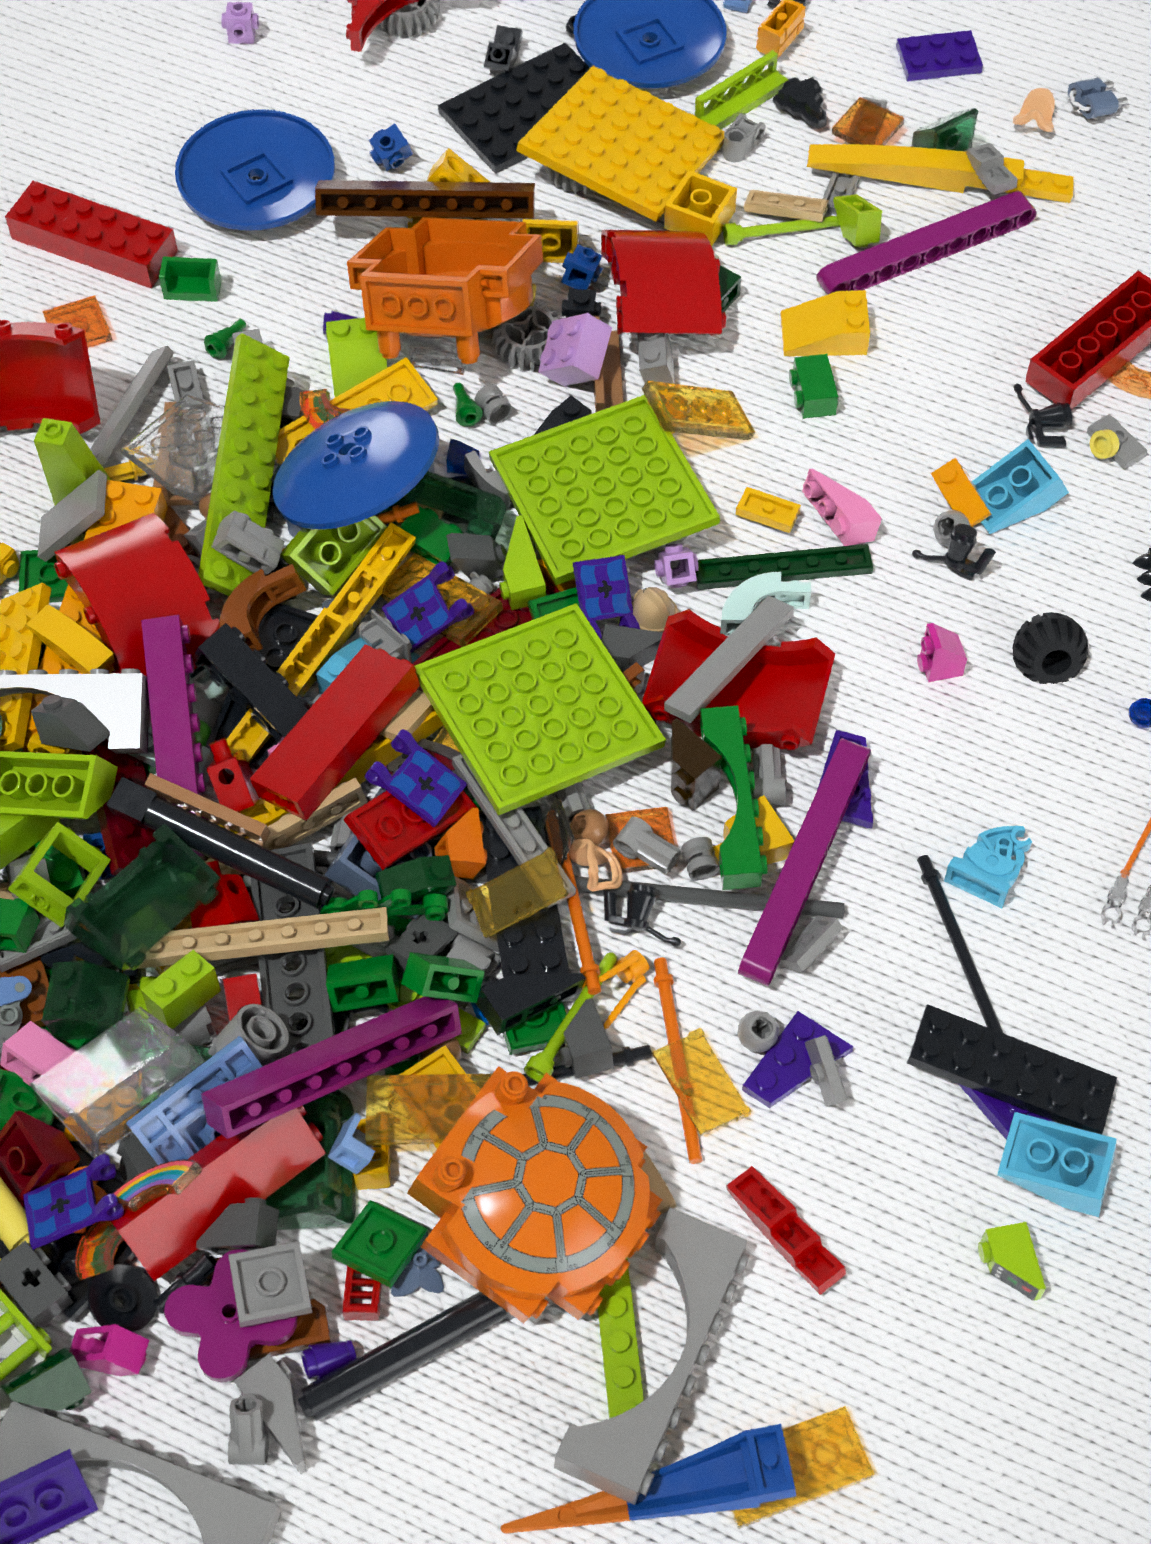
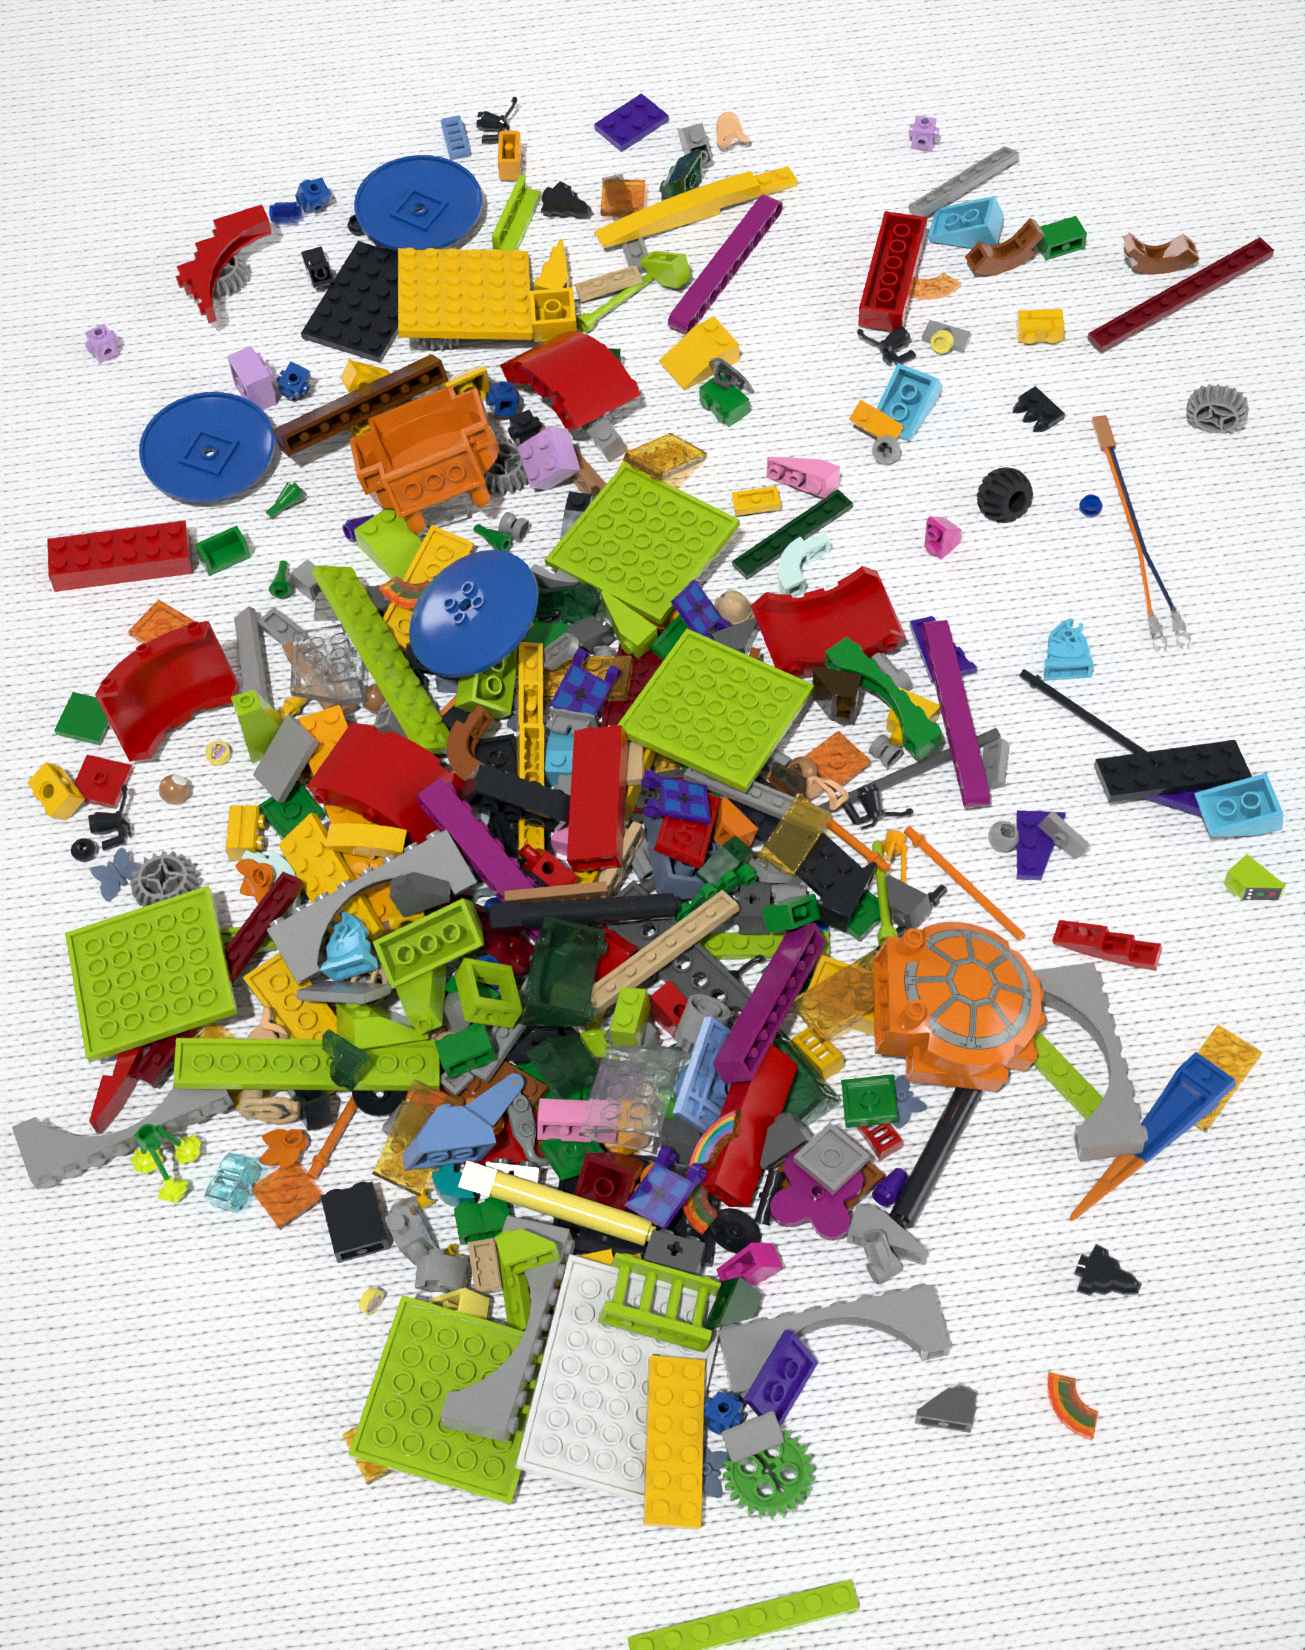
camera: 30 degrees left, 0 degrees up
(29, 477) = (218, 753): none -> light yellow tile
(248, 543) = (434, 708): light grey brick -> none
(296, 259) = (290, 495): none -> green cone
(349, 124) = (252, 377): none -> lavender brick
(351, 1148) = (811, 1052): light blue panel -> none
(363, 983) = (739, 947): green brick -> none
(426, 555) = (560, 651): none -> light grey plate
(639, 841) = (840, 761): light grey piece -> none
(685, 569) = (726, 569): lavender brick -> none
(702, 1077) = (1004, 892): clear yellow door -> none
(728, 659) = (814, 610): light grey tile -> none
(740, 165) = (554, 272): none -> yellow slope
(741, 138) = (540, 249): light grey piece -> none
(824, 368) = (732, 375): none -> dark grey shield
(961, 544) = (902, 457): black piece -> none
(988, 104) = (694, 138): none -> light grey slope
(989, 167) = (732, 186): light grey slope -> none
(1093, 98) = (760, 103): sand blue piece -> none

